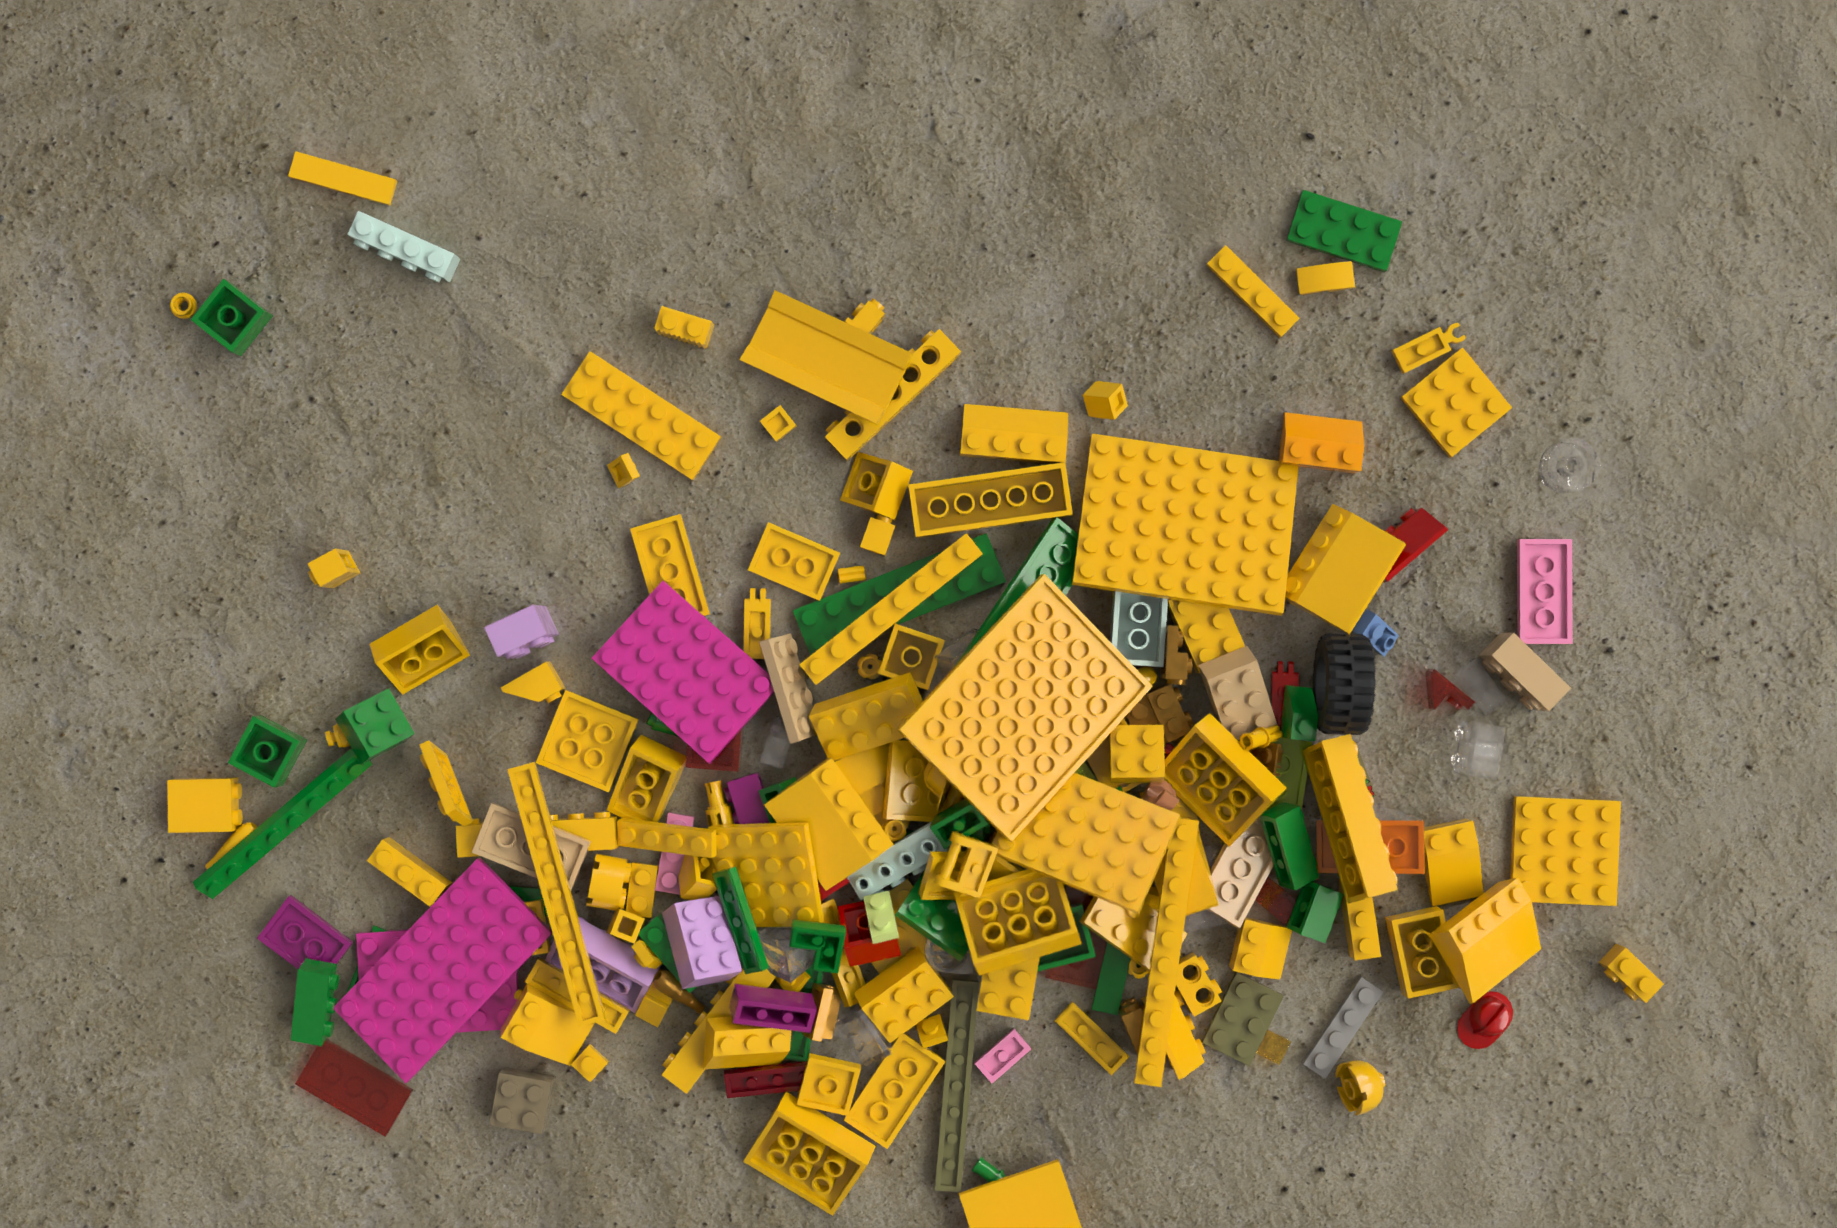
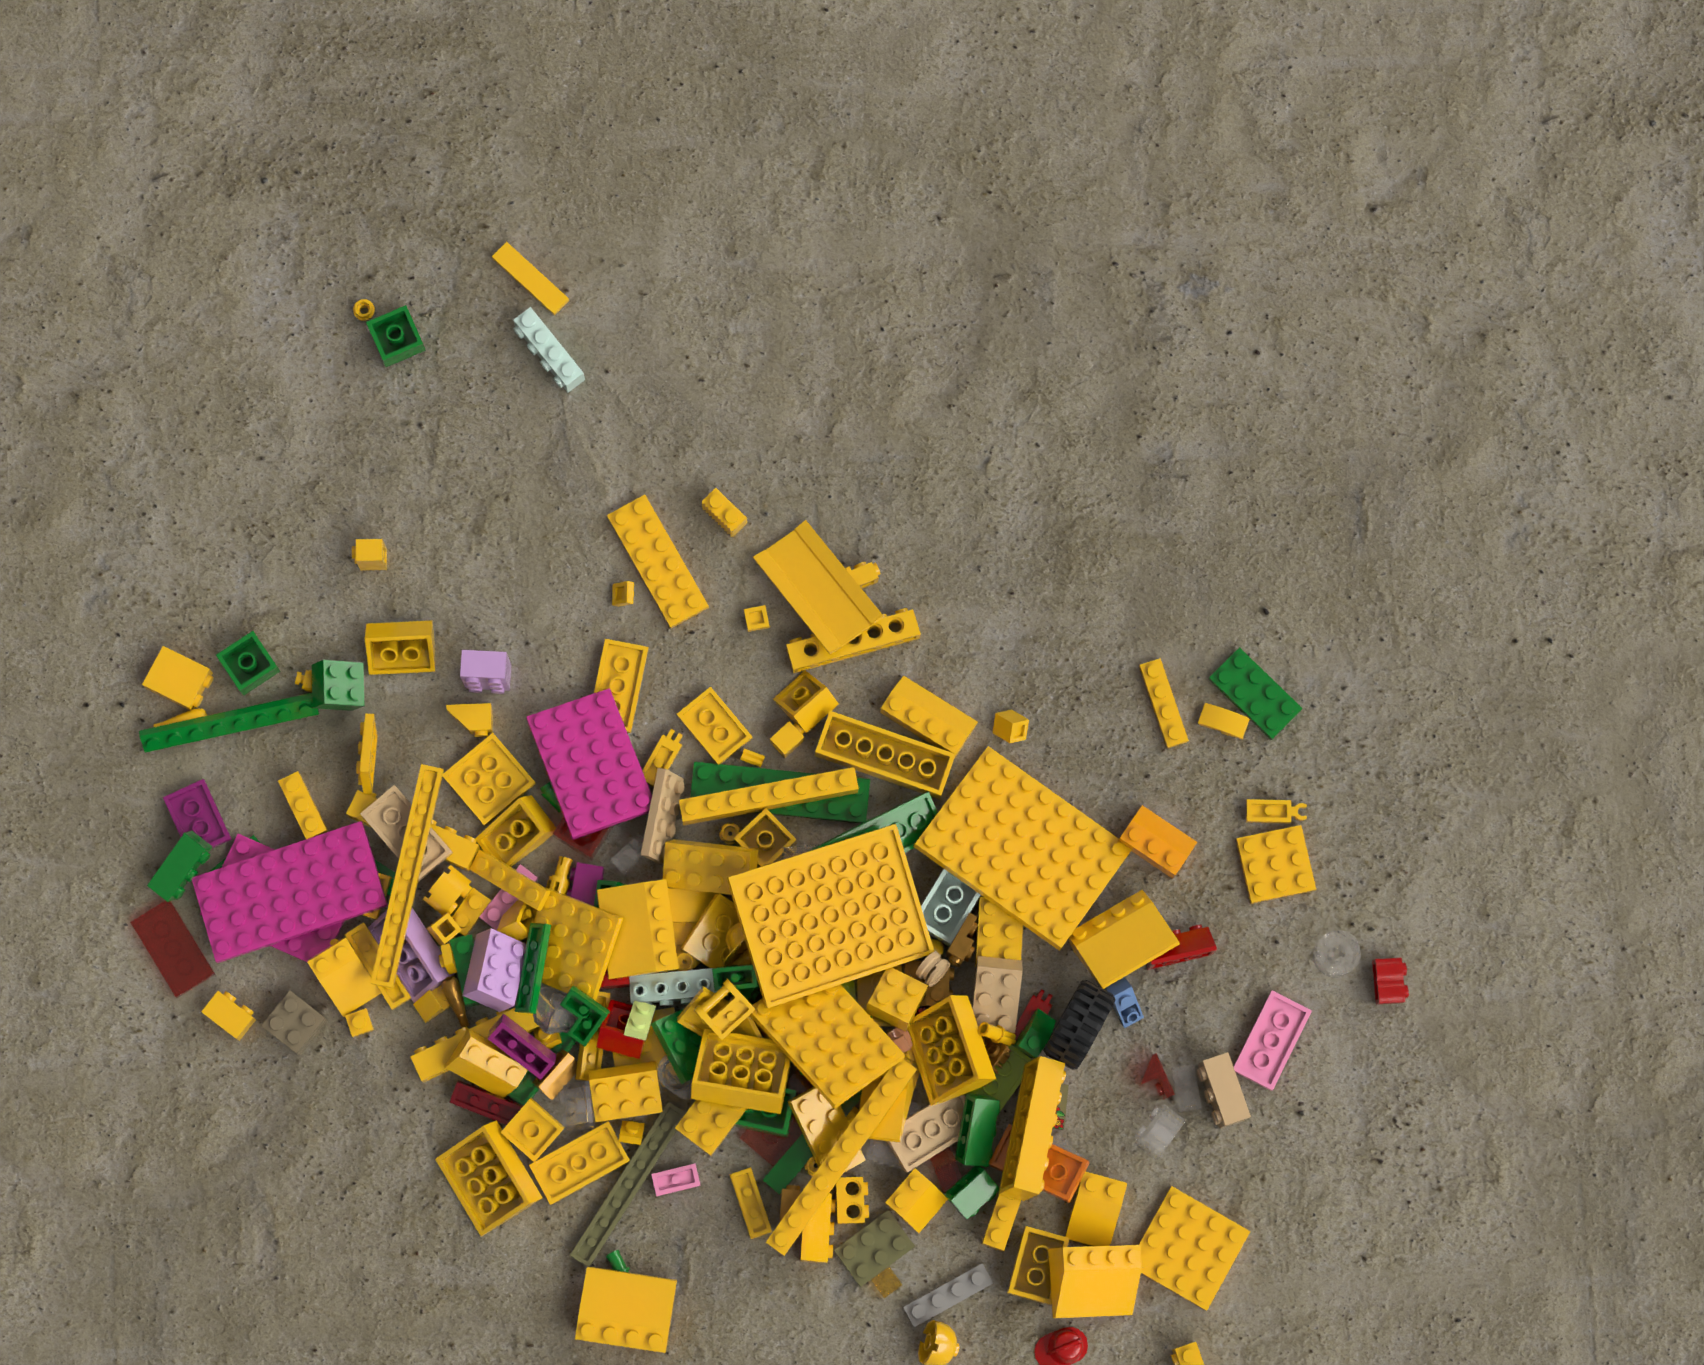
camera: 20 degrees right, 10 degrees down
(450, 1126) = (229, 1015): none -> yellow brick
(1155, 703) = (932, 968): none -> tan wheel
(1636, 466) = (1389, 981): none -> red brick

